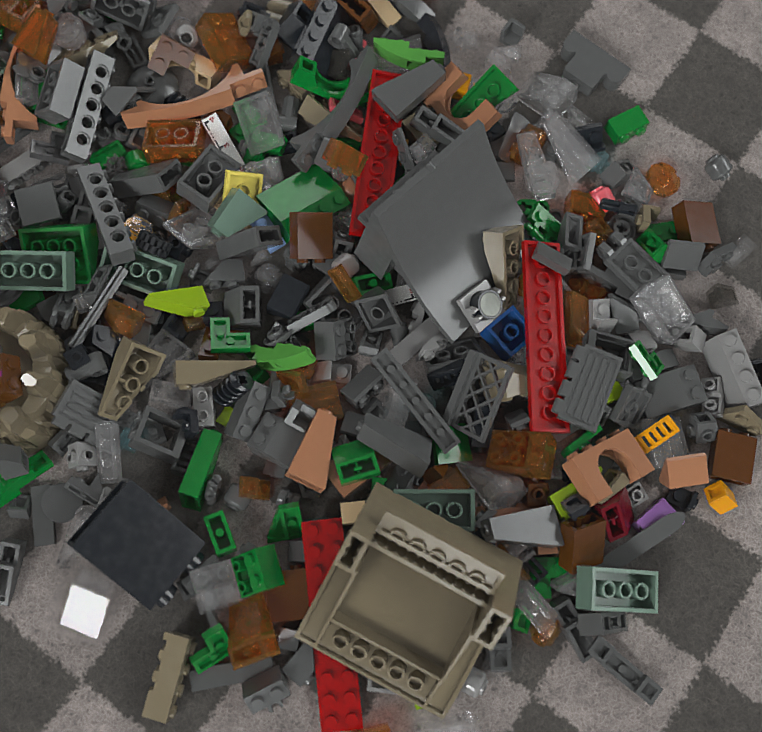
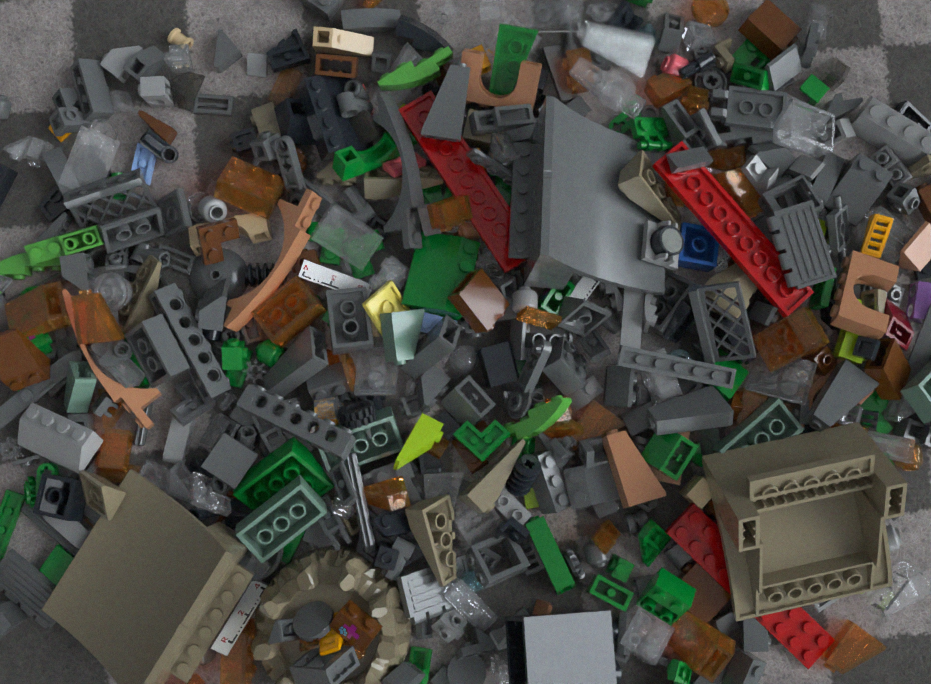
camera: 35 degrees left, 10 degrees up
(110, 140) = (234, 354): none -> green brick
(244, 523) = (619, 568): none -> green brick
(245, 22) = (255, 157): dark tan tile -> none
(650, 363) = (827, 182): green plate -> none
(696, 294) = (814, 89): none -> green panel

